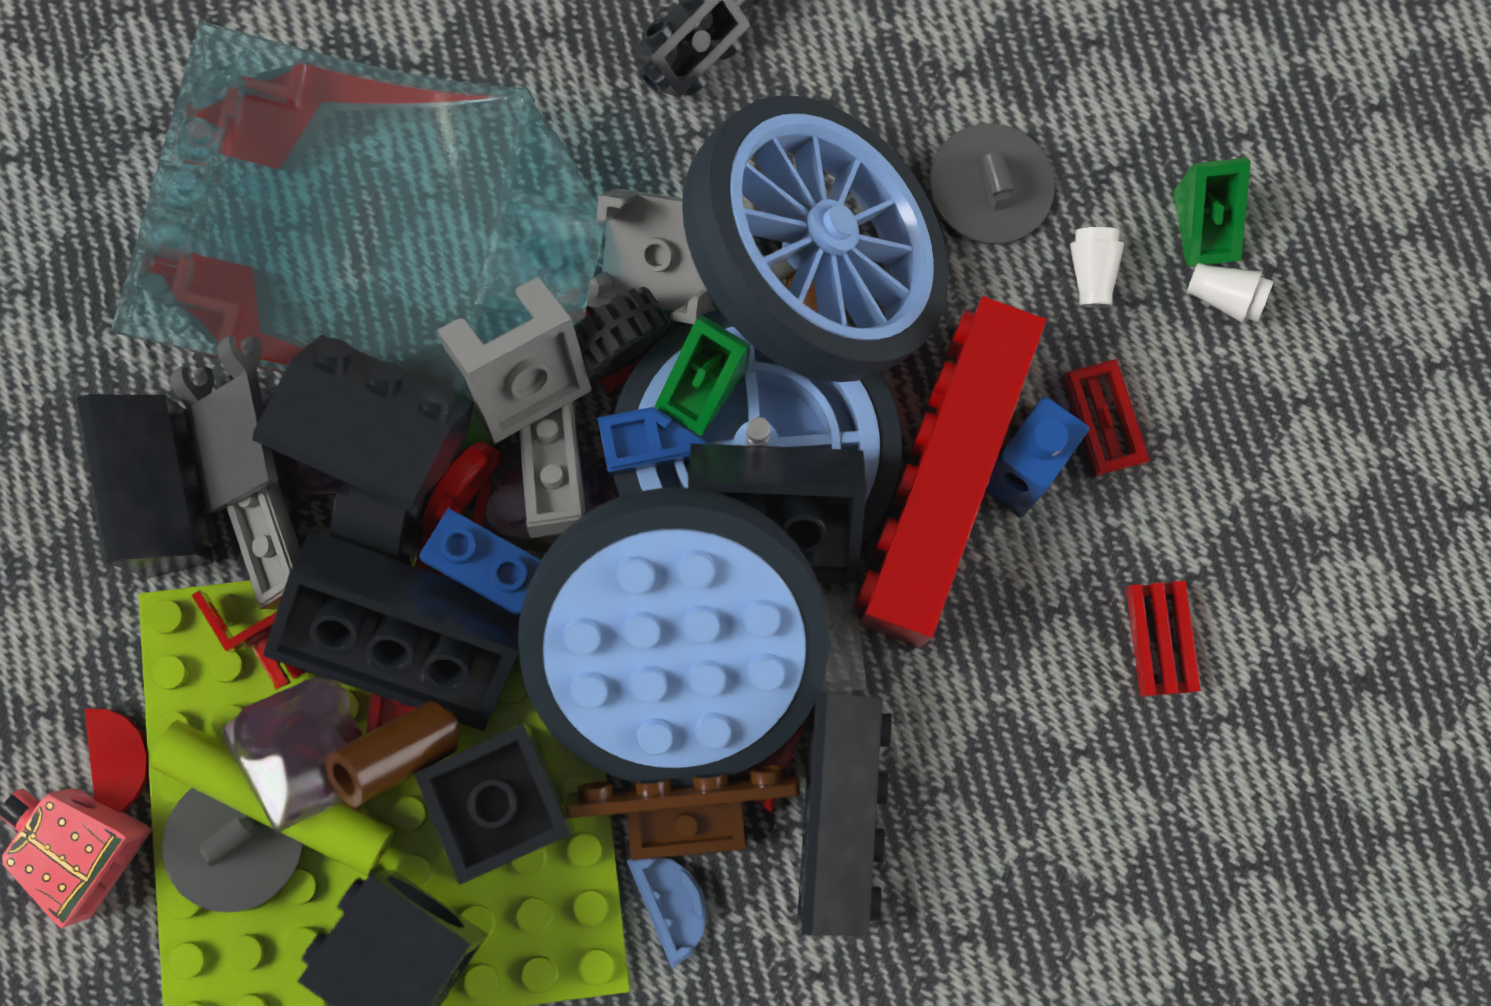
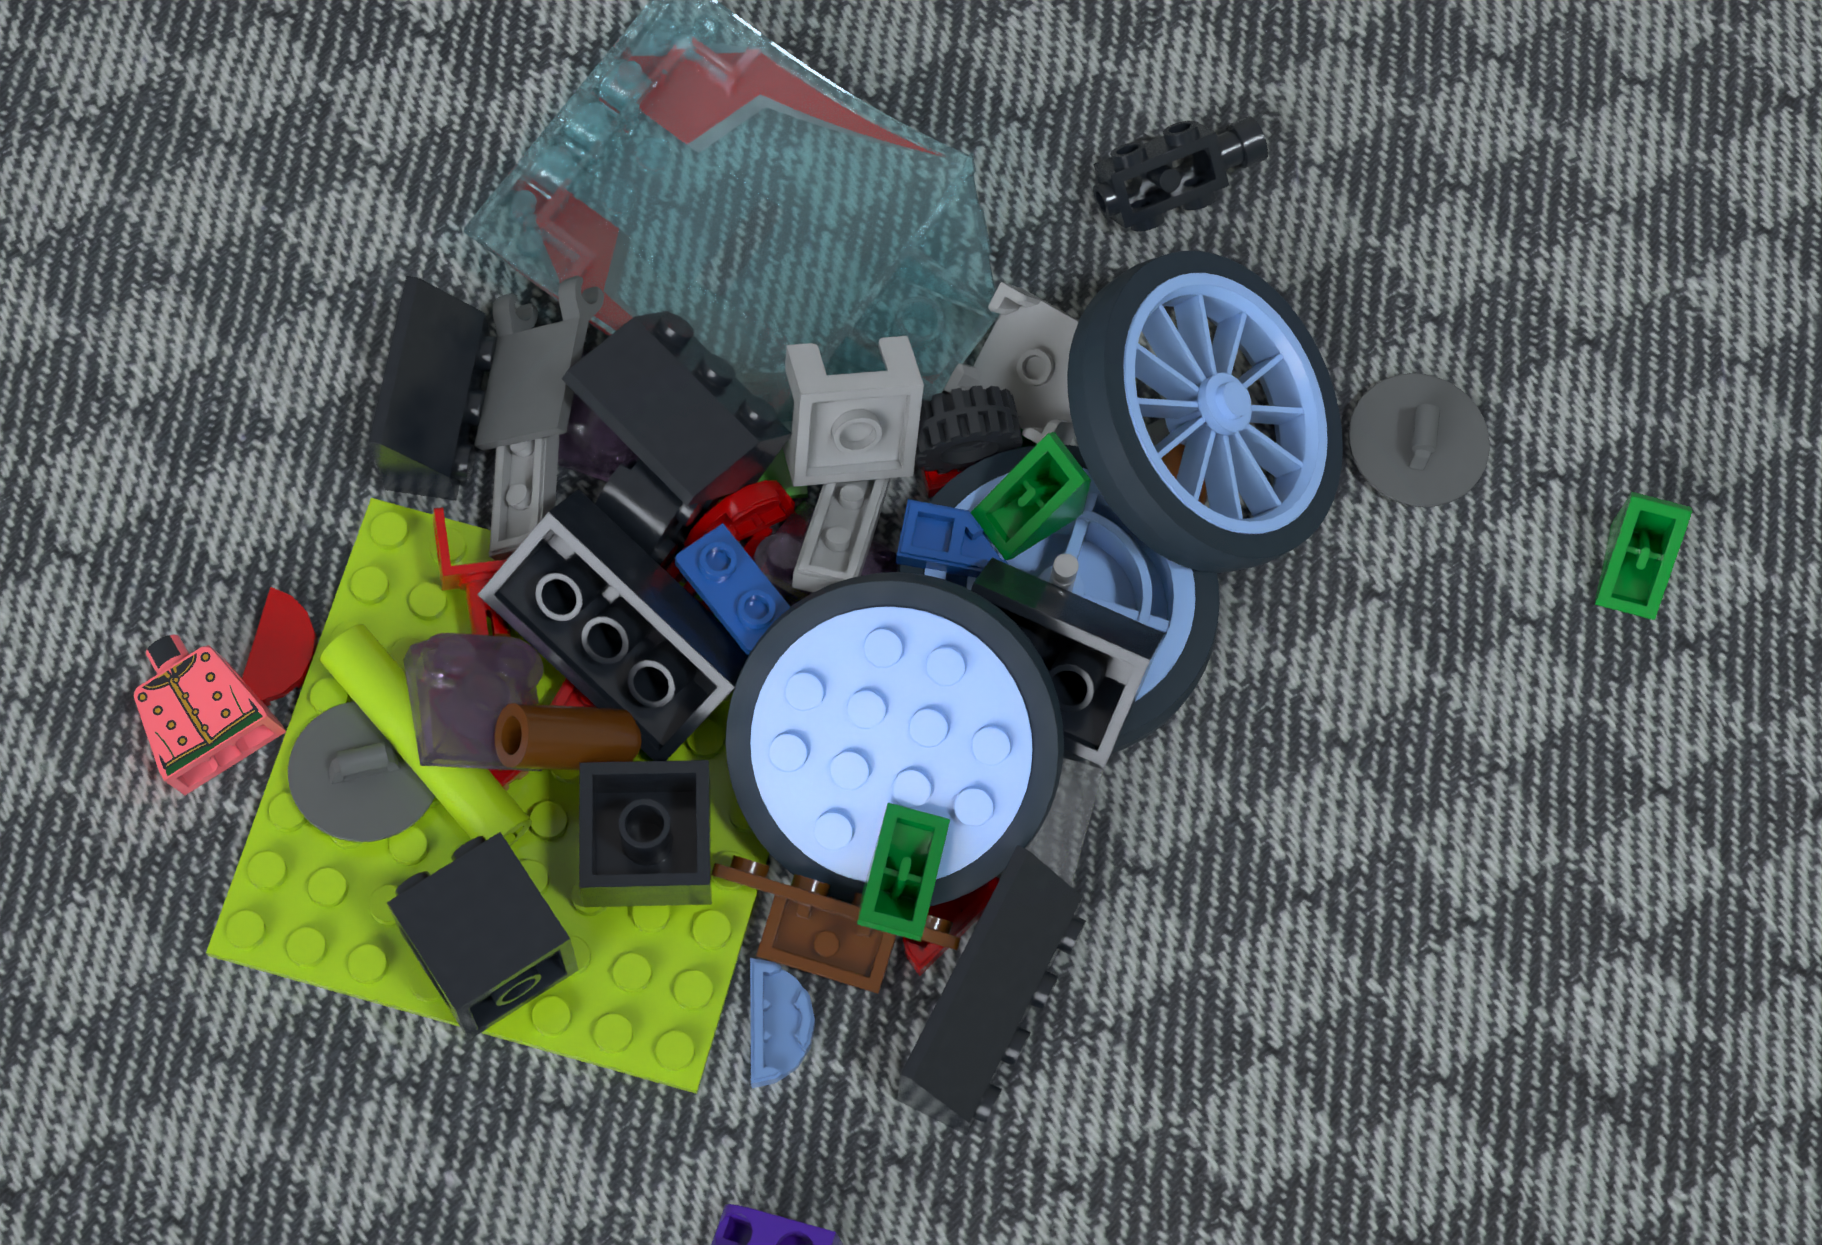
camera: 20 degrees right, 10 degrees down
(730, 758) = (903, 872): none -> green slope
(952, 471) = (1246, 701): red brick -> none
(1035, 455) = (1352, 718): blue torso -> none
(1093, 450) = (1436, 770): red tile -> none
(1096, 264) = (1494, 561): white cone -> none
(1184, 637) = (1422, 918): red tile -> none
(1231, 290) = (1631, 645): white cone -> none

